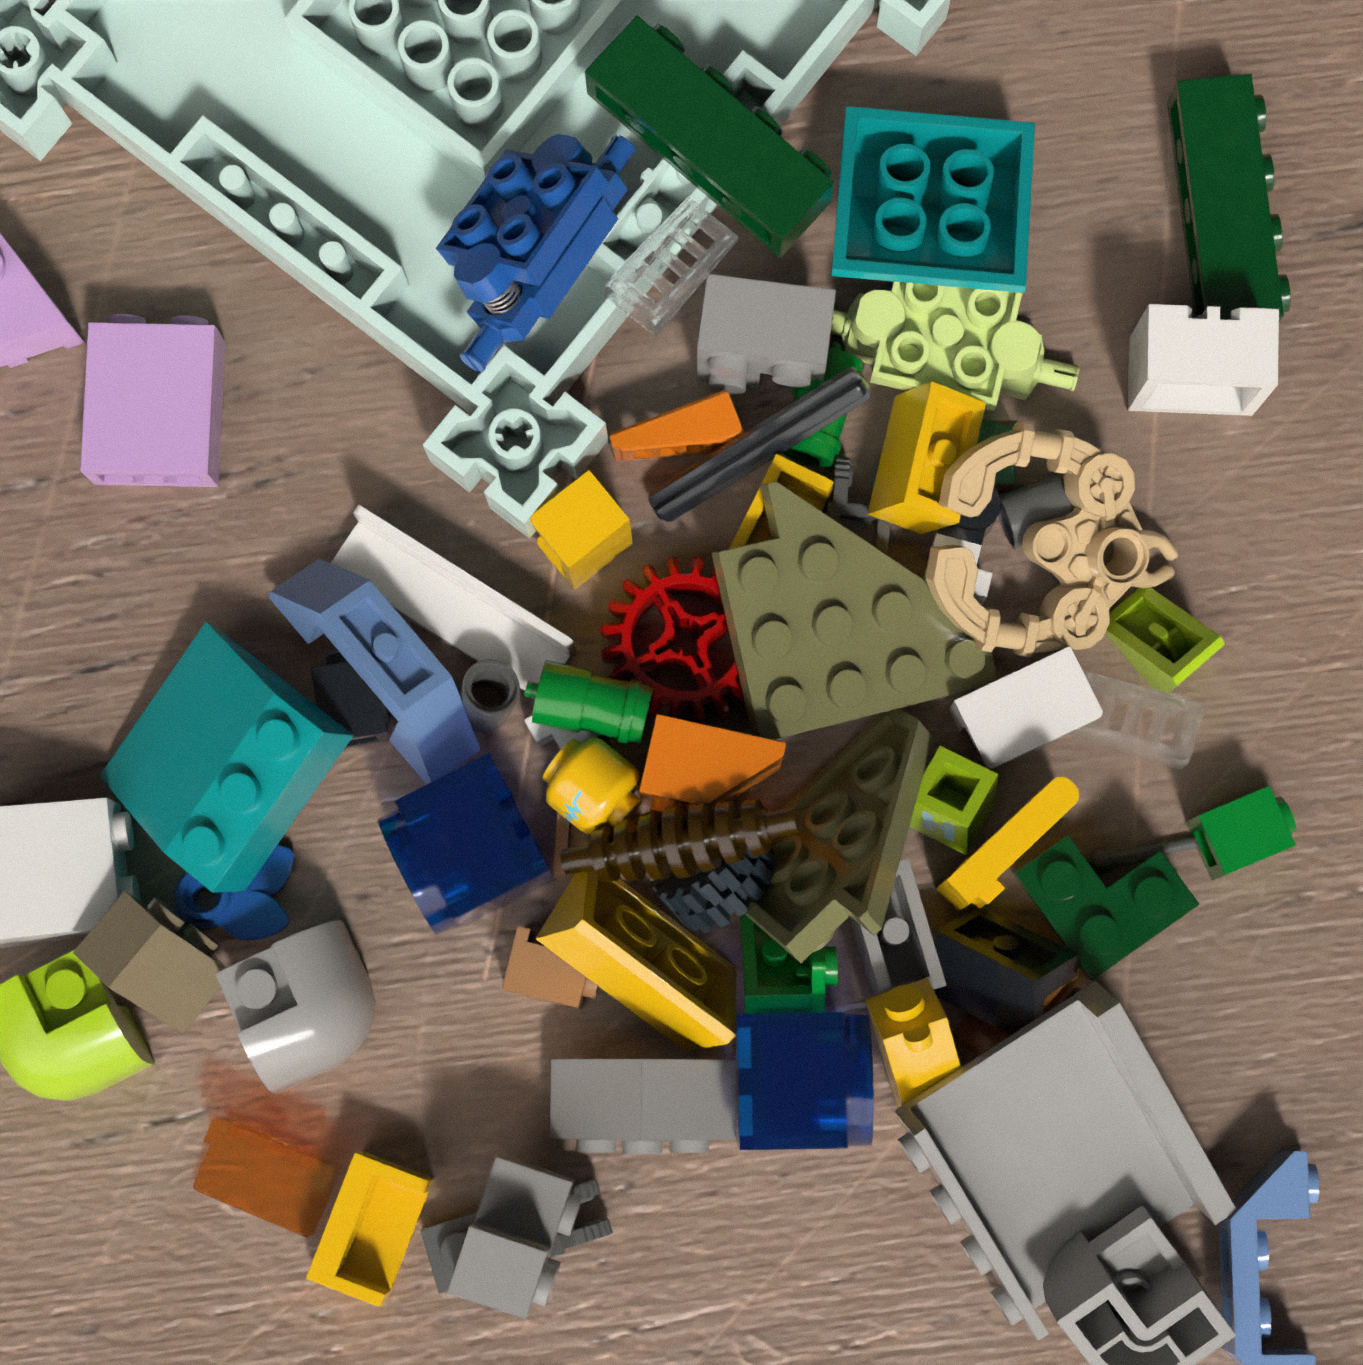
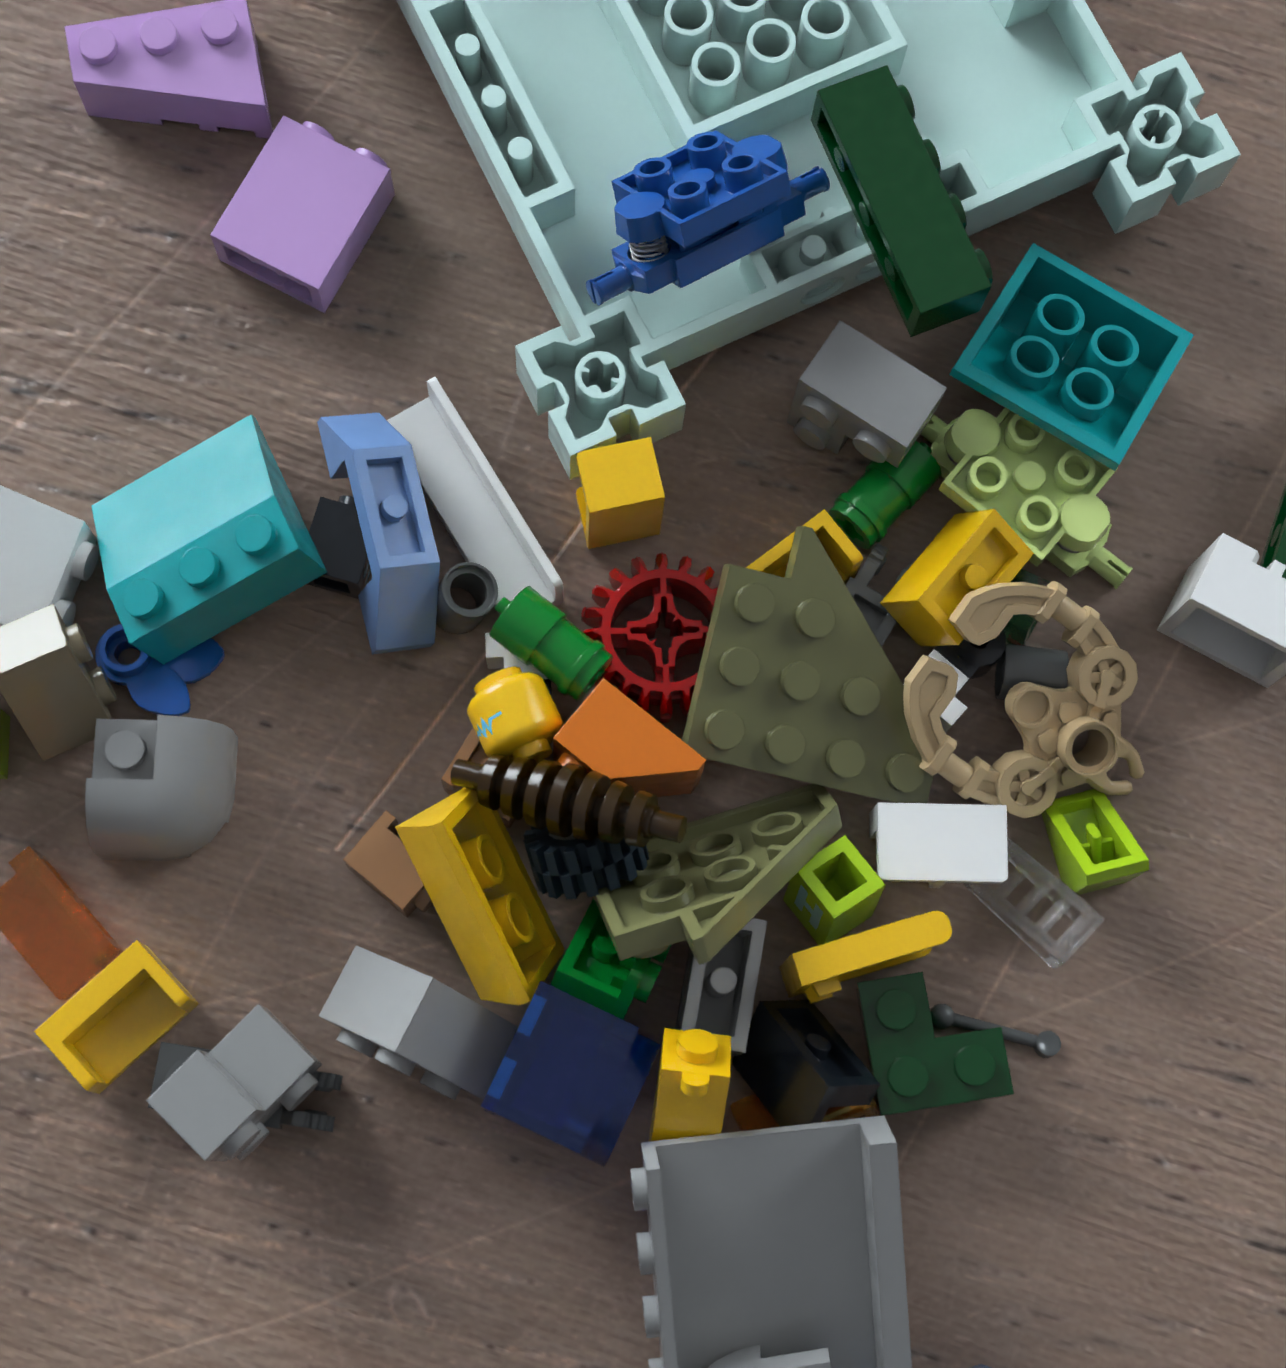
camera: 15 degrees right, 5 degrees down
(464, 846) = (375, 716): clear blue piece -> none
(637, 304) = (778, 330): clear slope -> none
(681, 431) = (758, 456): orange slope -> none
(760, 444) = (813, 495): black axle -> none
(1243, 832) = (1084, 1051): green brick -> none

